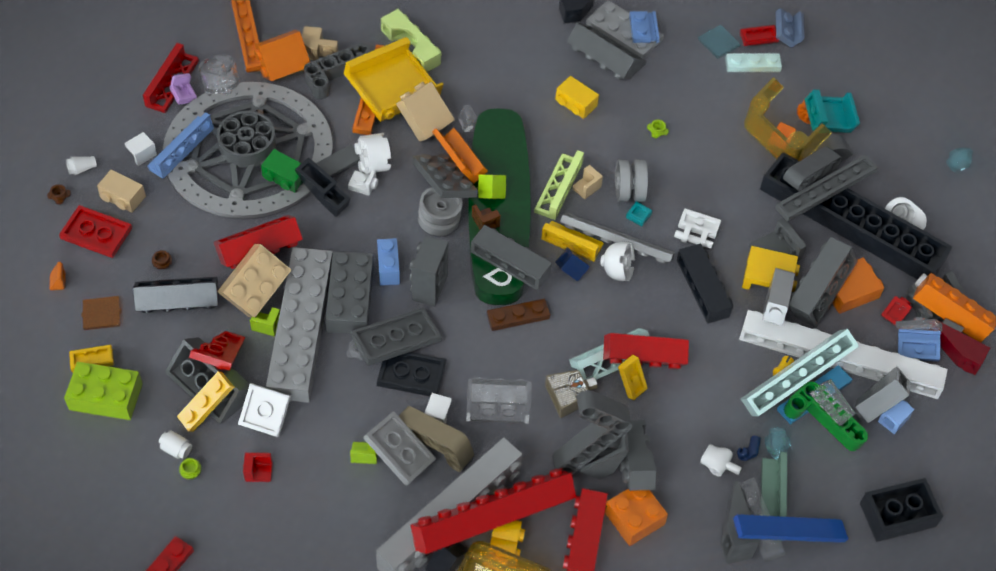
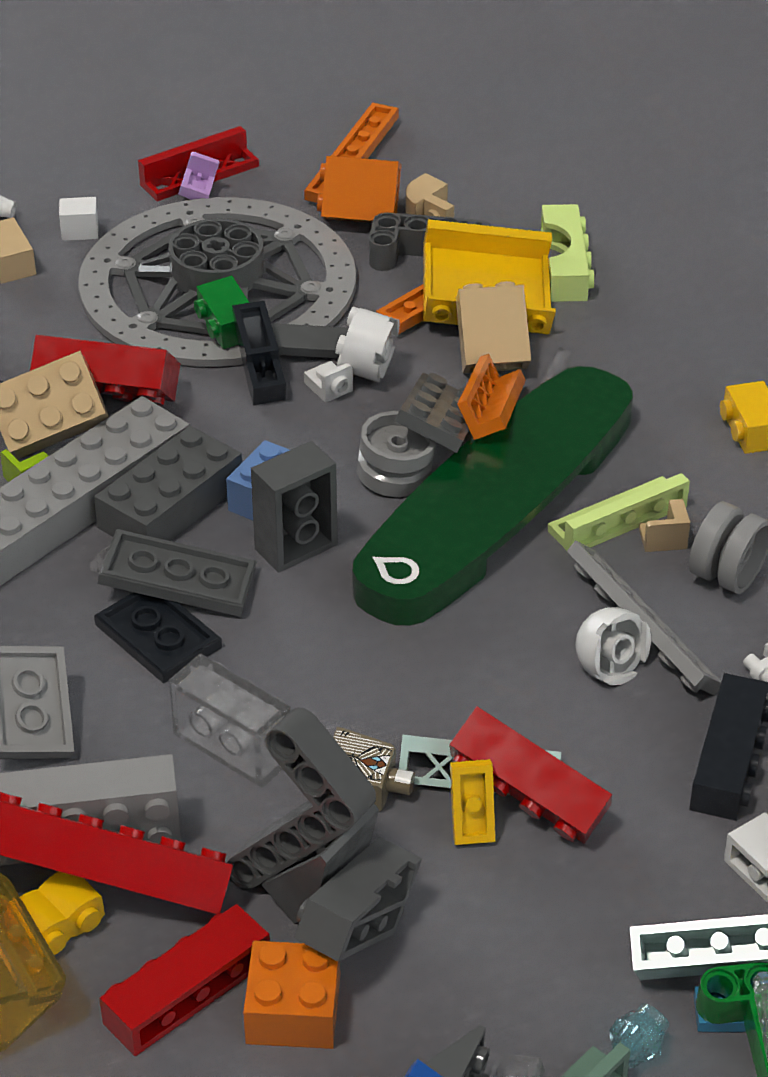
camera: 40 degrees right, 15 degrees down
(181, 146) = (126, 231): medium blue fence -> none
(219, 74) = (256, 178): clear brick -> none
(438, 407) = (132, 686): white panel -> none
(440, 437) = (96, 713): dark tan beam -> none
(486, 217) = (445, 488): reddish brown panel -> none
(492, 186) = (495, 450): lime panel -> none
(511, 257) = (434, 548): dark grey brick -> none
(518, 314) = (388, 640): reddish brown plate -> none
(564, 237) = (562, 583): yellow panel -> none
(572, 264) = (535, 616): dark blue panel -> none
(639, 213) = (714, 607): teal tile -> none
(718, 460) = (511, 1003): white piece -> none
(750, 452) = (582, 1027): dark blue arm -> none

